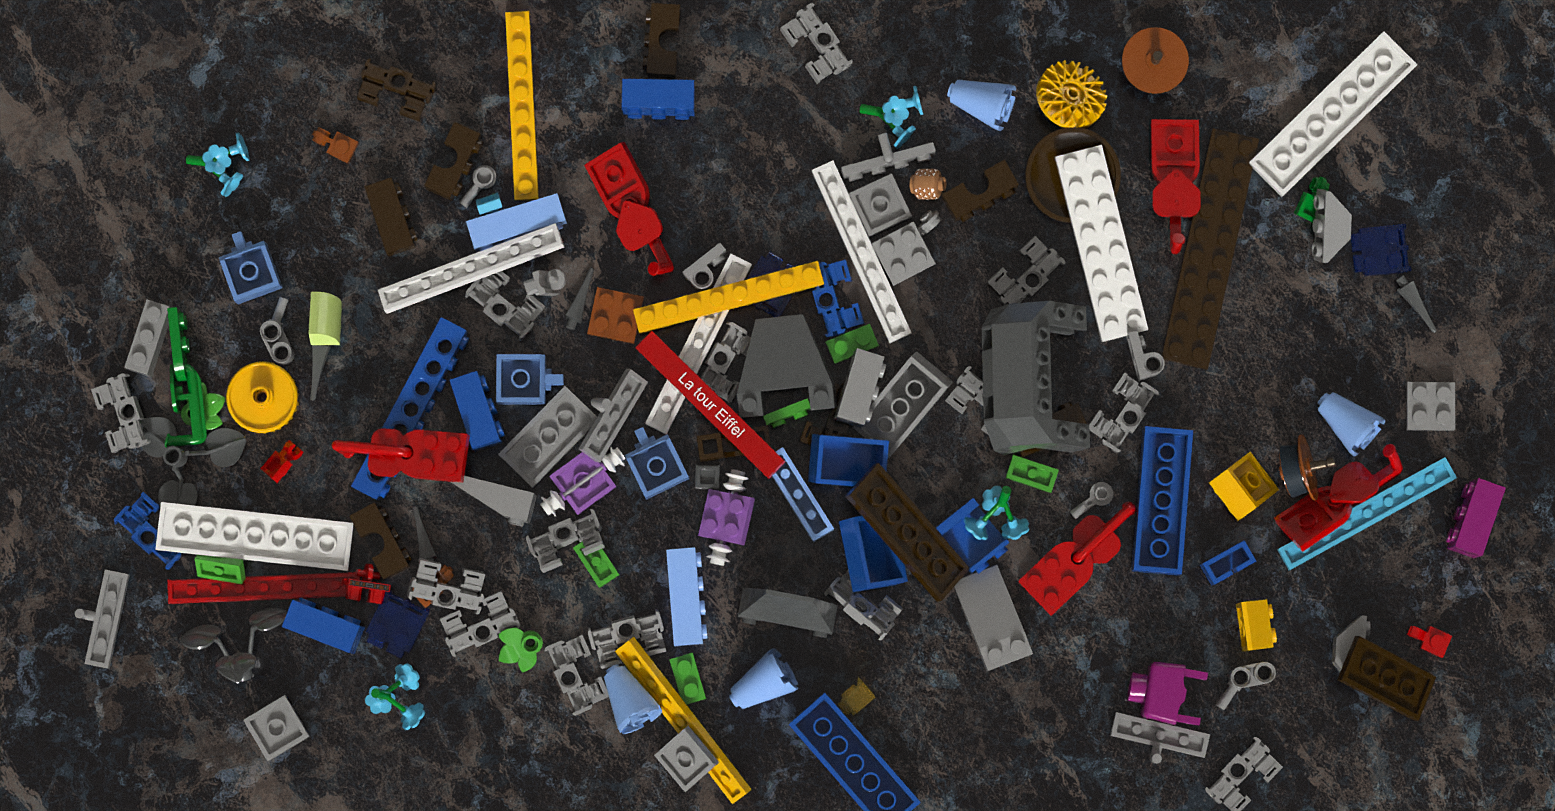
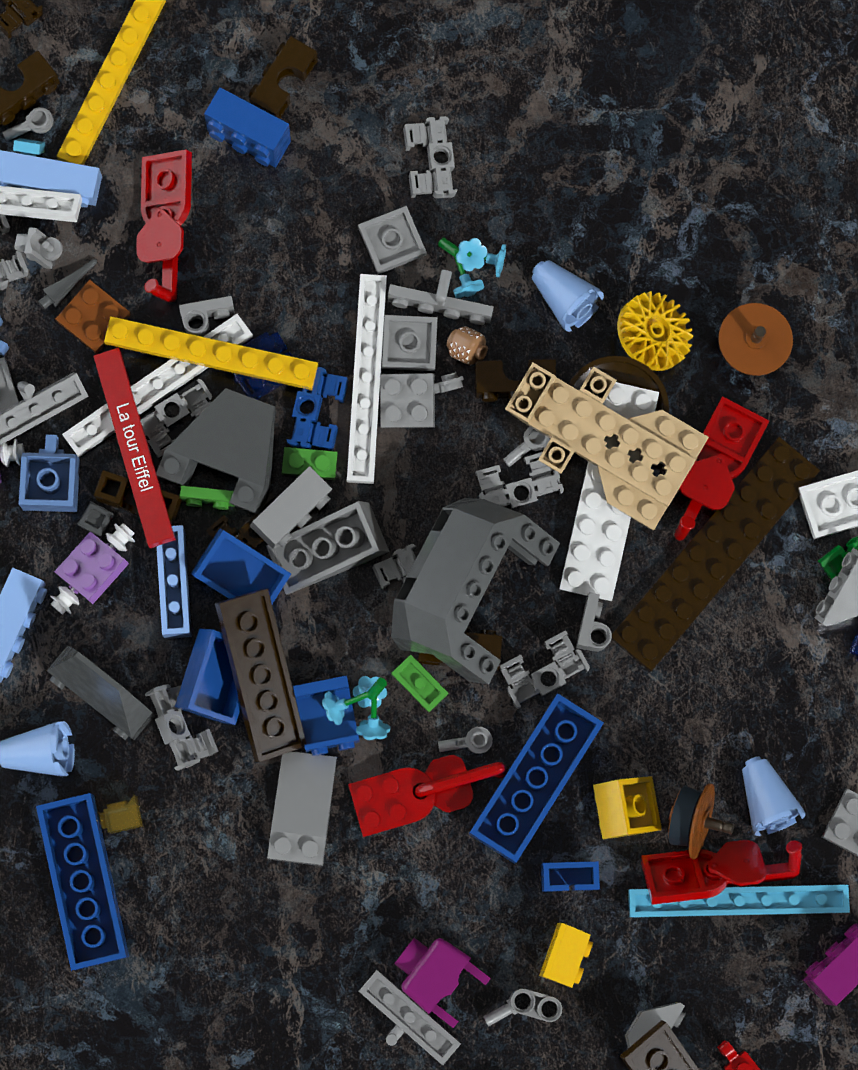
camera: 20 degrees right, 5 degrees down
(821, 128) = (392, 240): none -> light grey plate
(1020, 230) = (532, 441): none -> light grey plate
(1054, 205) = (580, 422): none -> tan piece

